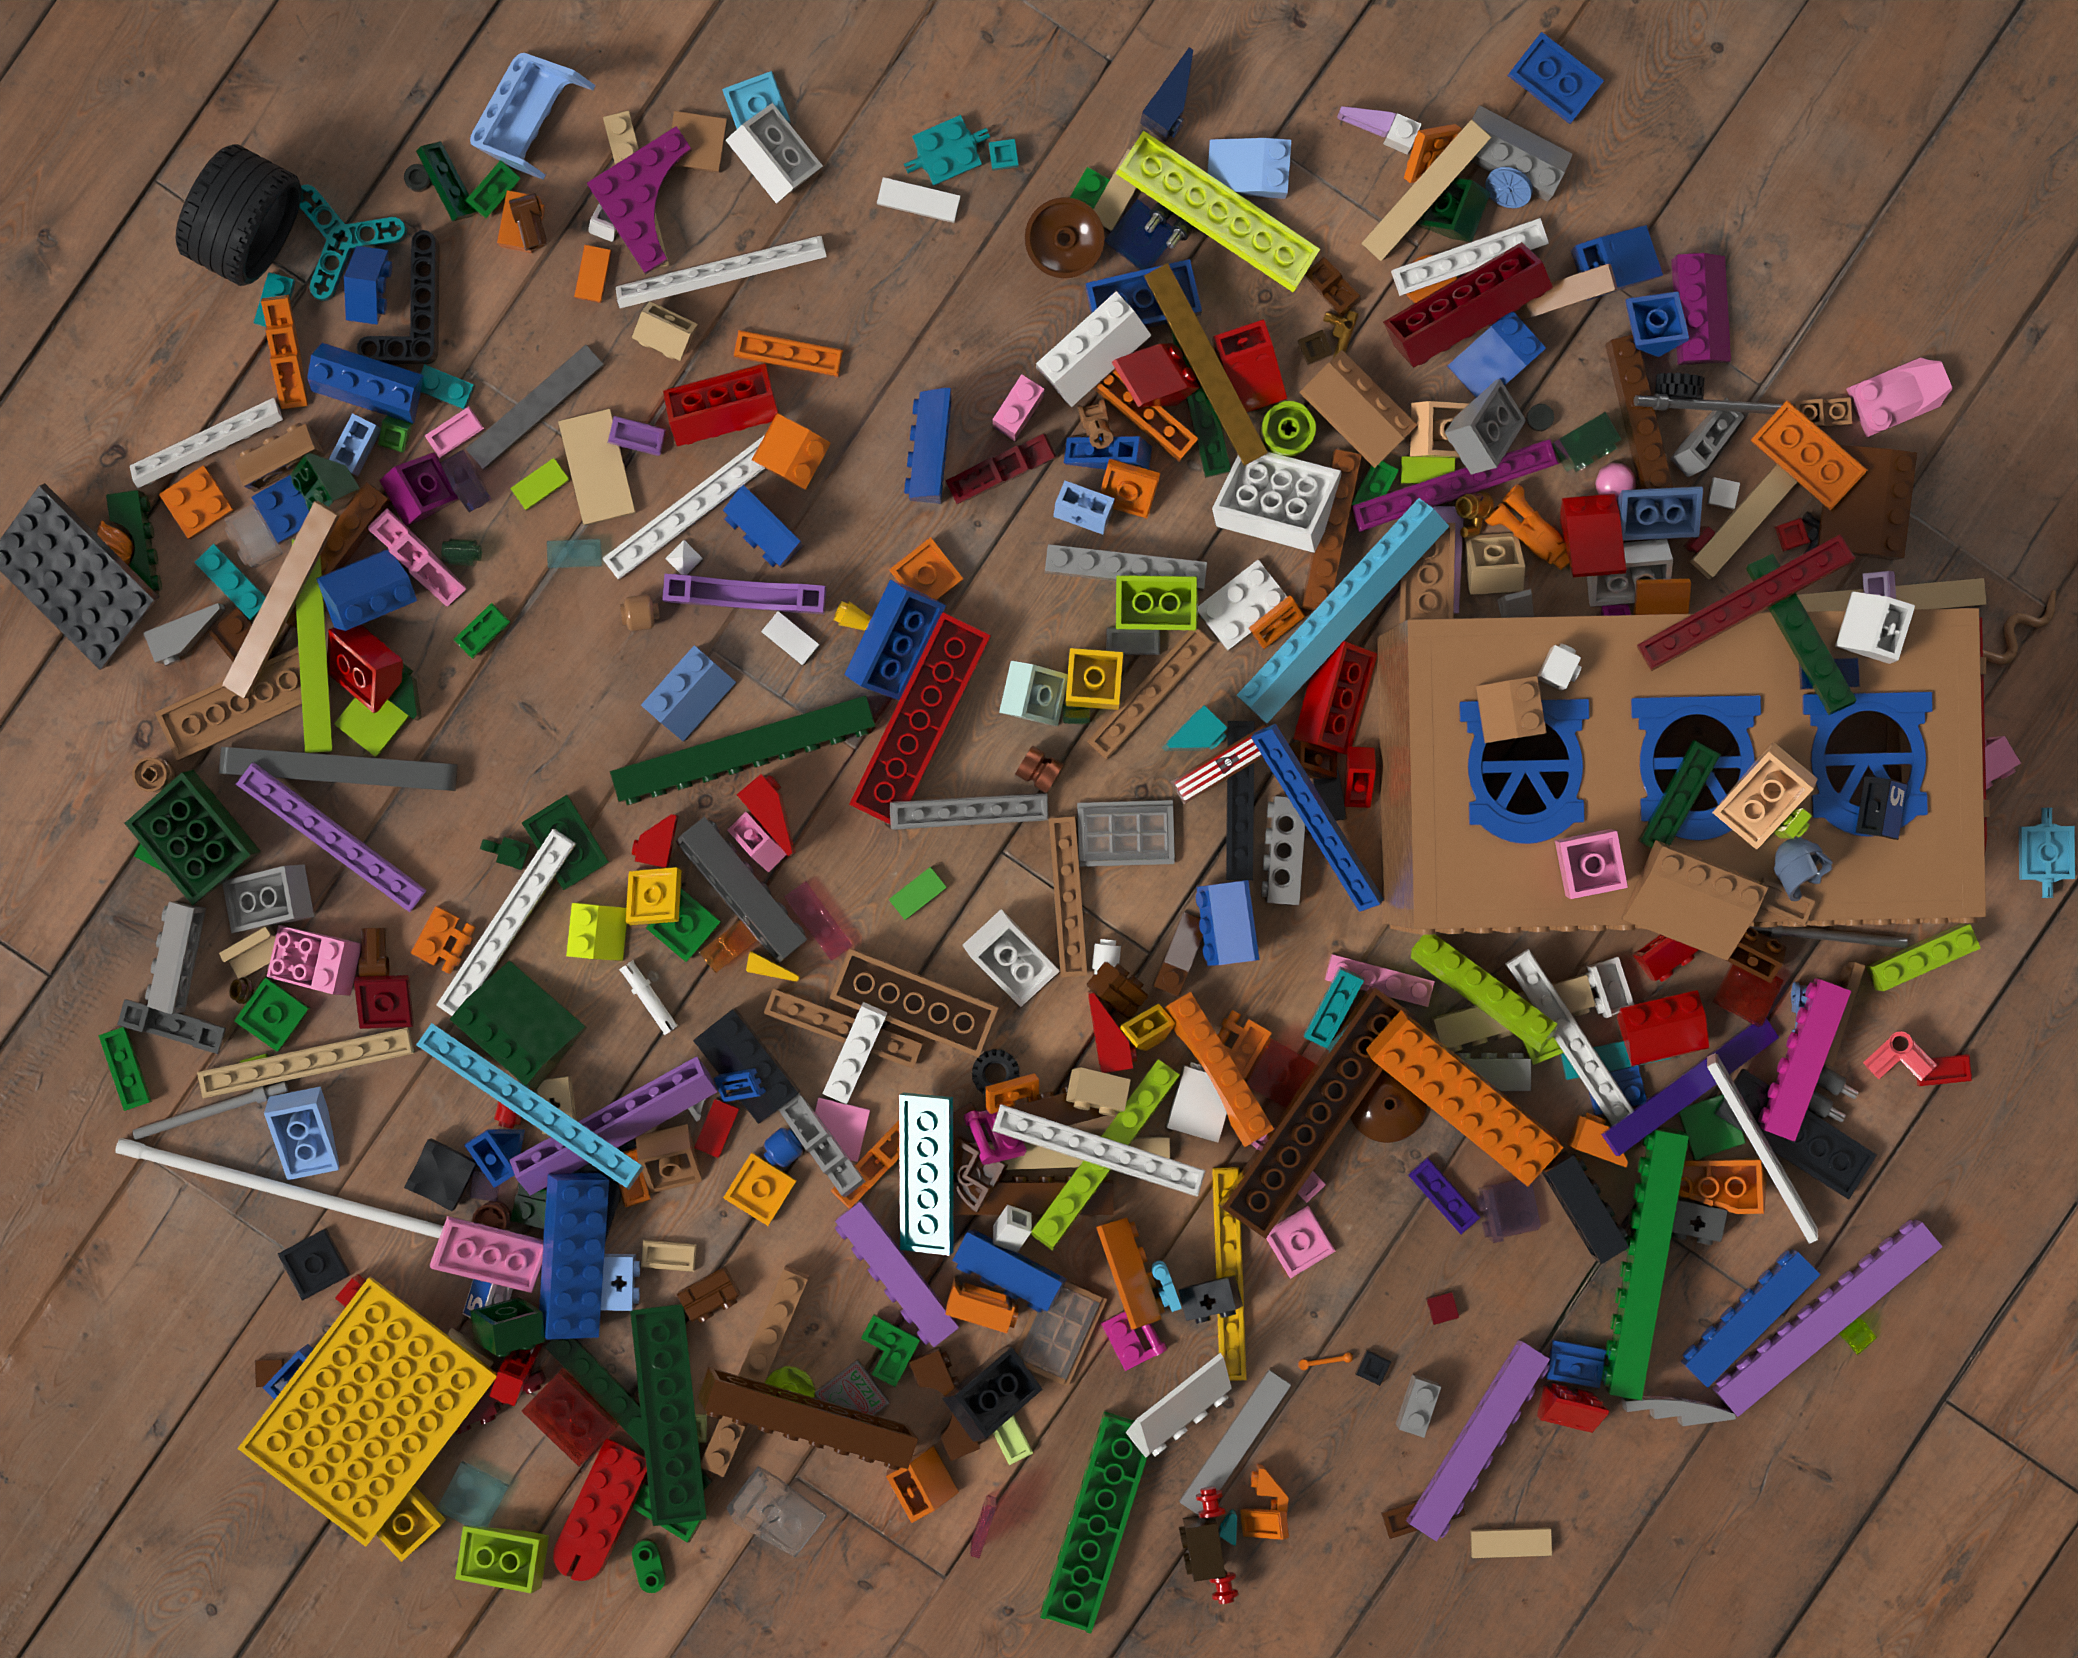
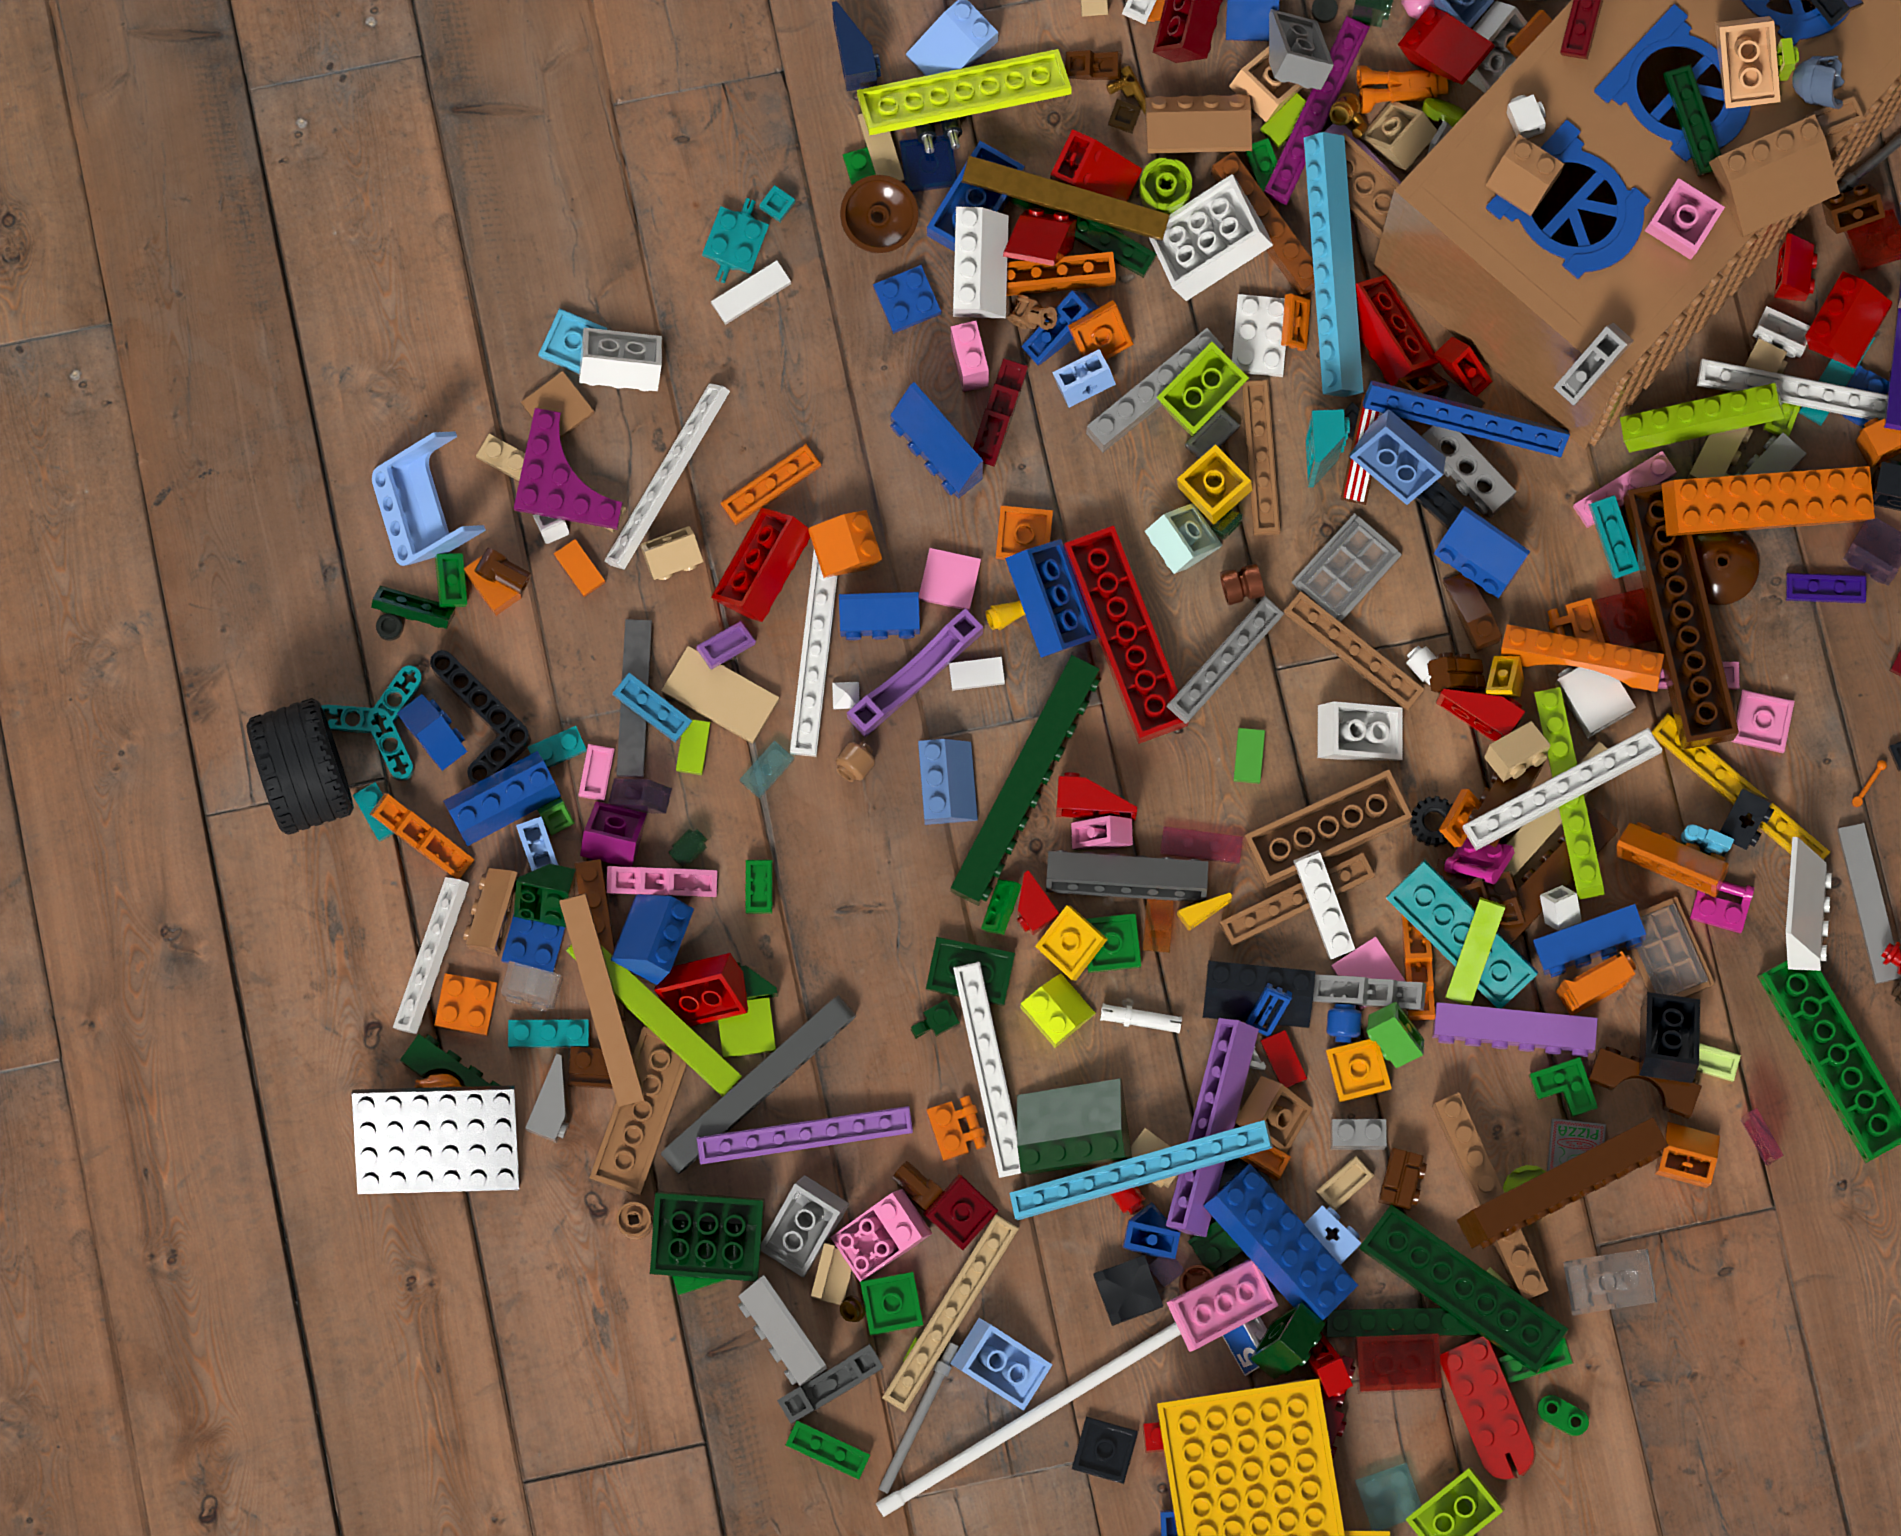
camera: 50 degrees left, 10 degrees down
(536, 427) = (652, 707): none -> dark azure plate
(633, 820) = (1001, 906): none -> green plate
(711, 1233) = (1358, 1134): none -> light grey brick
(806, 1194) = (1395, 1035): none -> bright green brick
(841, 551) = (949, 579): none -> bright pink tile
(922, 1195) = (1475, 951): none -> lime tile
(1023, 319) = (907, 299): none -> blue plate
(1240, 796) = (1398, 457): none -> medium blue slope
(1411, 899) = (1593, 363): none -> light grey slope
(1544, 584) = (1442, 110): none -> lime tile

